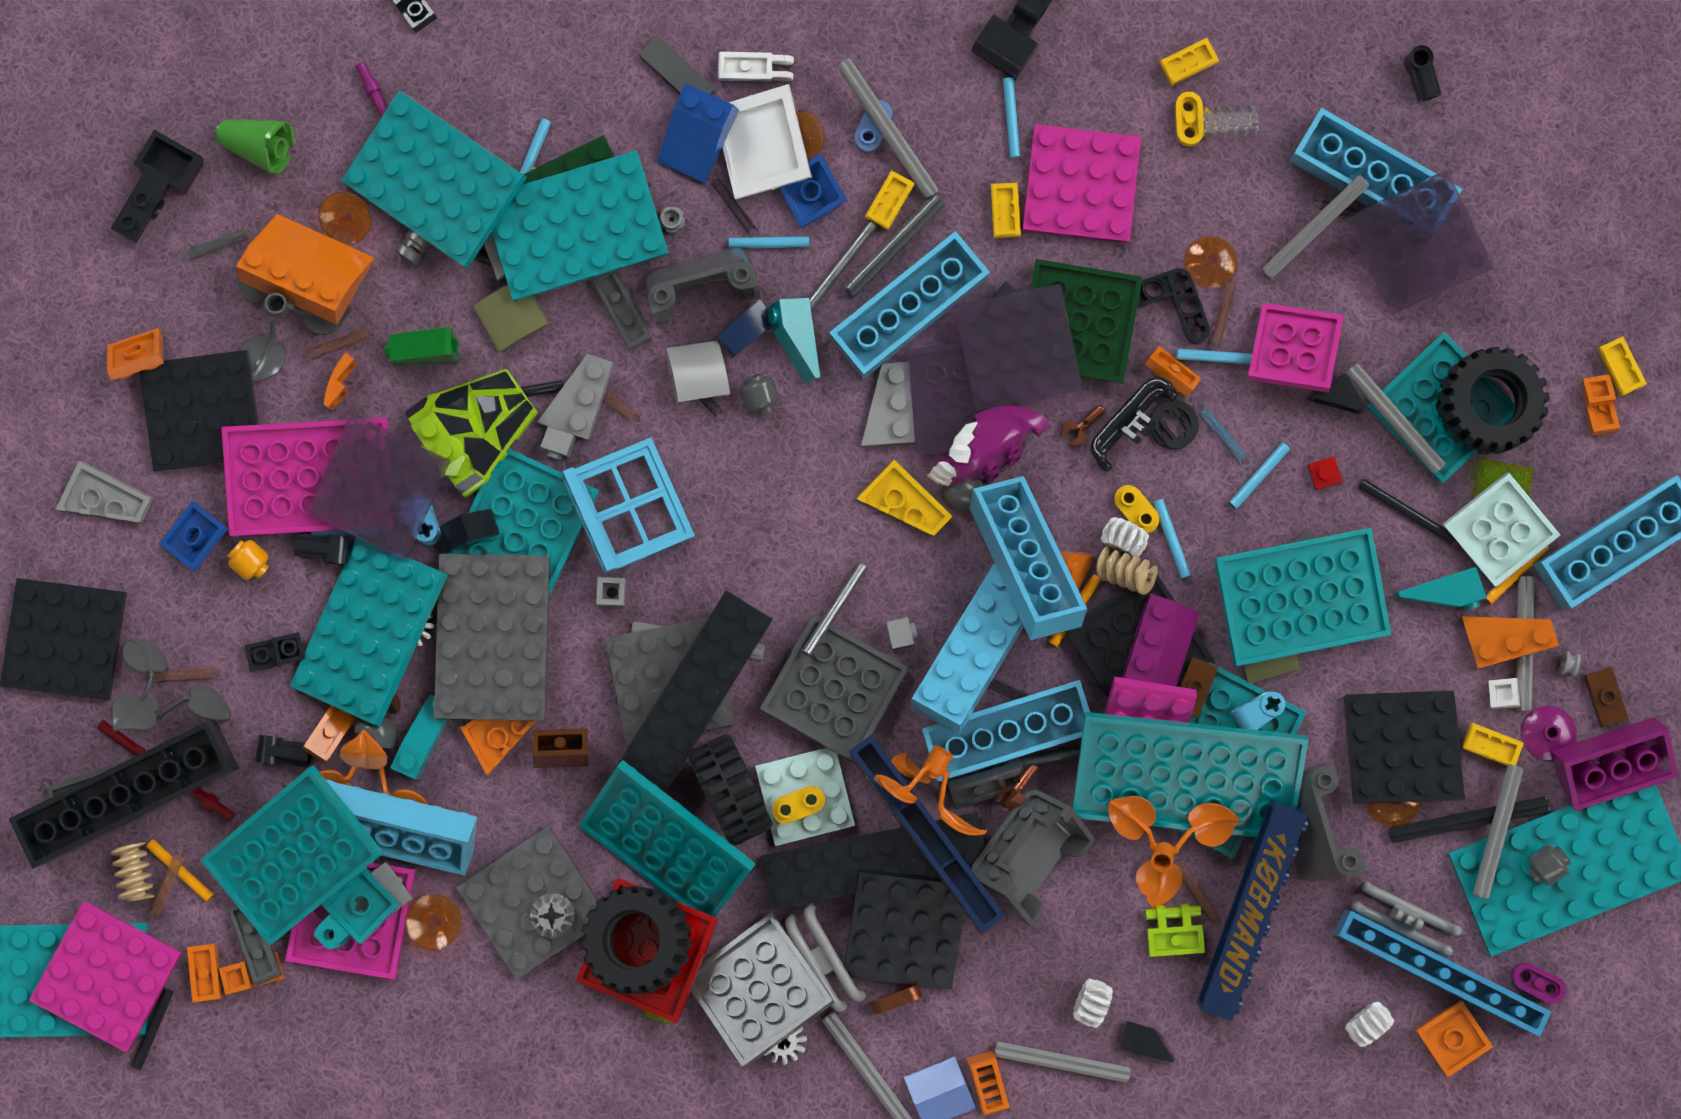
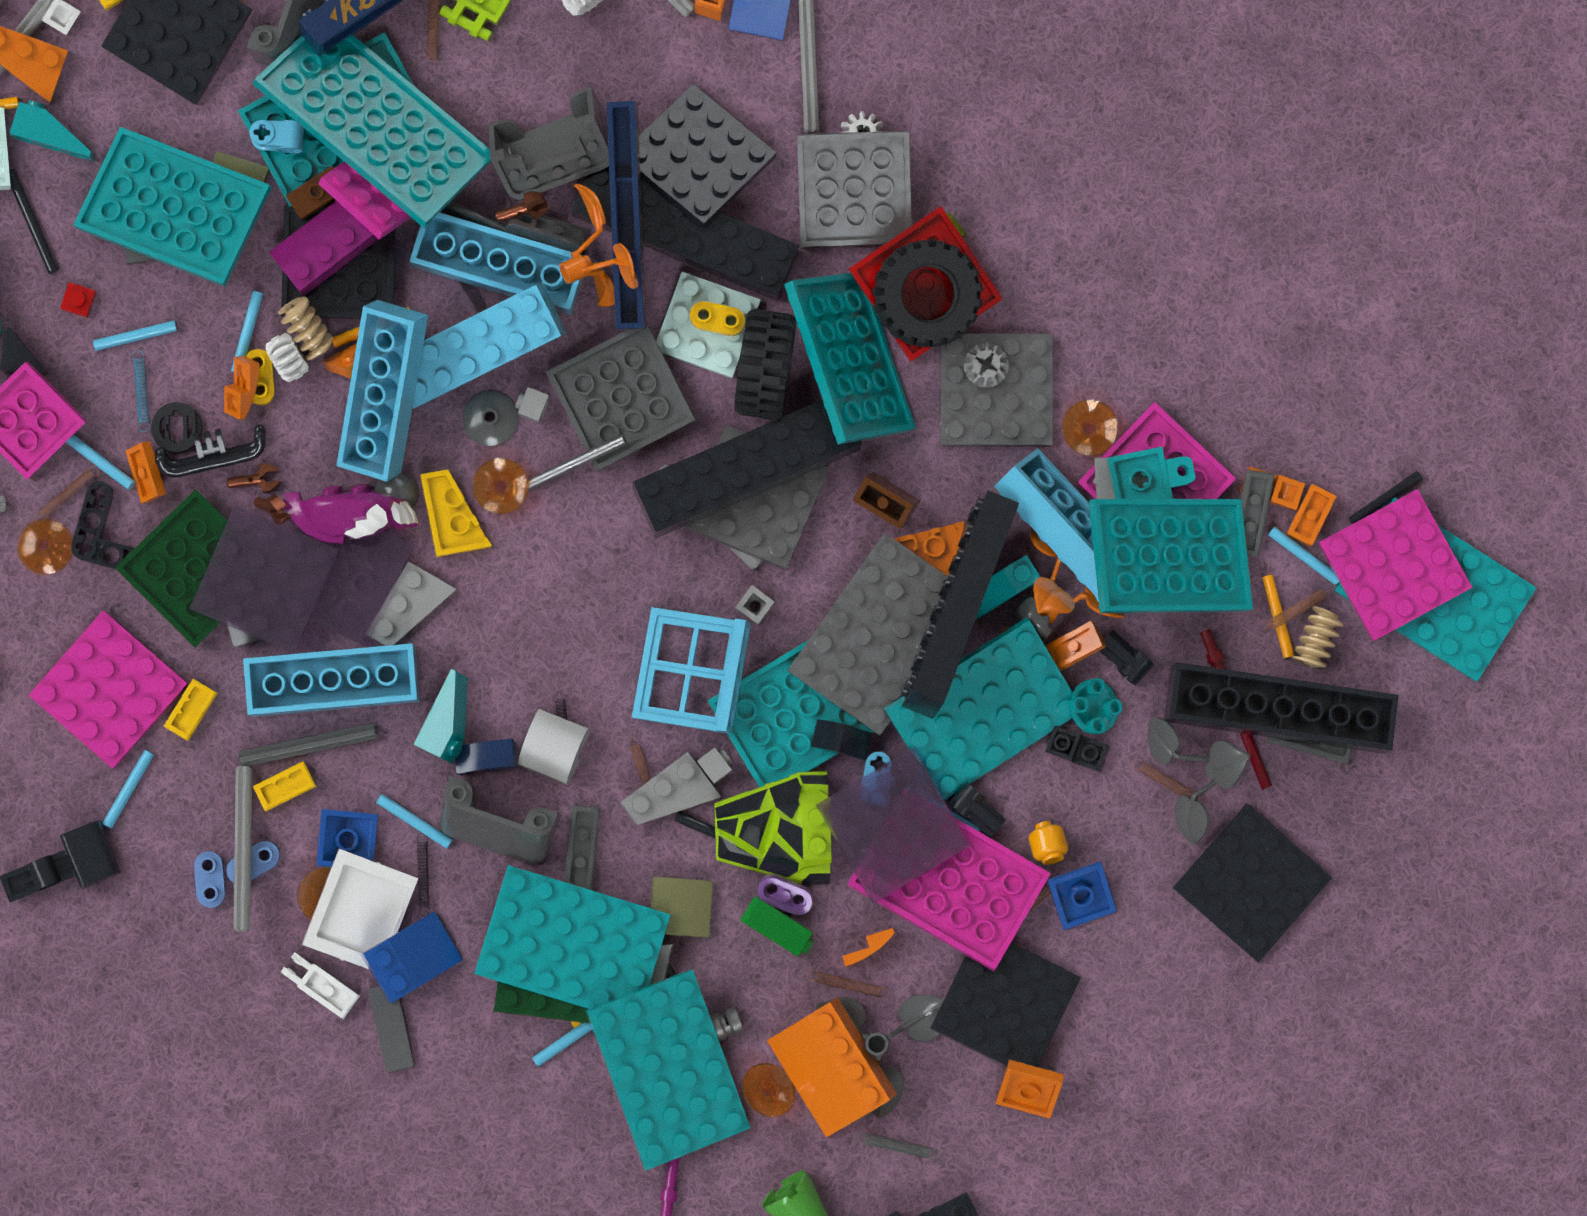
camera: 145 degrees left, 0 degrees up
(101, 494) = (1137, 985): light grey wing -> none
(191, 935) = (1303, 555): none -> medium azure bar
(281, 695) = (1094, 706): none -> teal dish
(435, 377) = (784, 896): none -> medium lavender plate
(437, 697) = (958, 604): none -> black brick
(666, 214) = (479, 892): light grey plate -> none
(759, 393) = (513, 691): dark grey head -> none
(823, 957) = (782, 179): light grey piece -> none
(841, 264) = (364, 759): flat silver bar -> none
(882, 536) = (499, 471): none -> clear orange dish
(896, 999) = (745, 106): copper beam -> none
(898, 90) = (210, 879): none -> medium blue plate
(928, 616) = (492, 432): none -> dark grey dish
(1050, 410) = (273, 506): none -> copper bar
(1141, 486) = (240, 395): none -> orange slope
(1159, 877) = (453, 57): orange plant -> none

